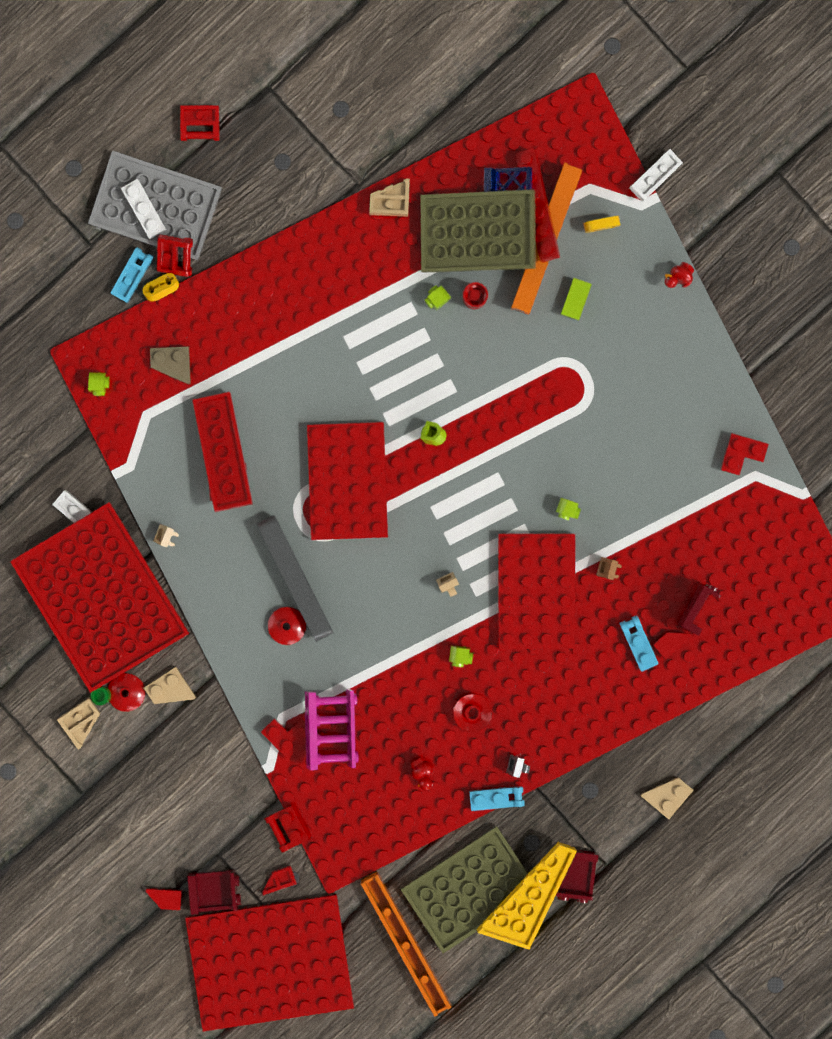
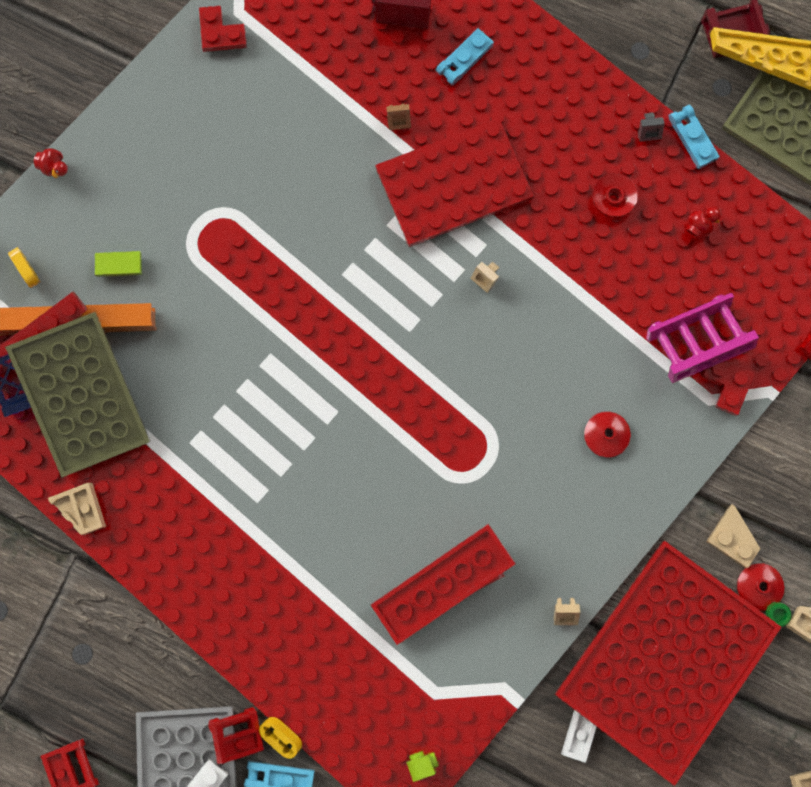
camera: 110 degrees left, 10 degrees down
(172, 362) = (362, 687): dark tan wing -> none
(294, 578) = (550, 445): dark grey beam -> none
(347, 481) = (418, 431): red plate -> none
(433, 434) = (327, 357): lime plate -> none
(437, 297) = (172, 412): lime plate -> none
(460, 656) = (558, 231): lime plate -> none
(475, 295) = (154, 371): red wheel -> none
(568, 509) = (351, 182): lime plate -> none
(670, 643) = (450, 25): red tile -> none

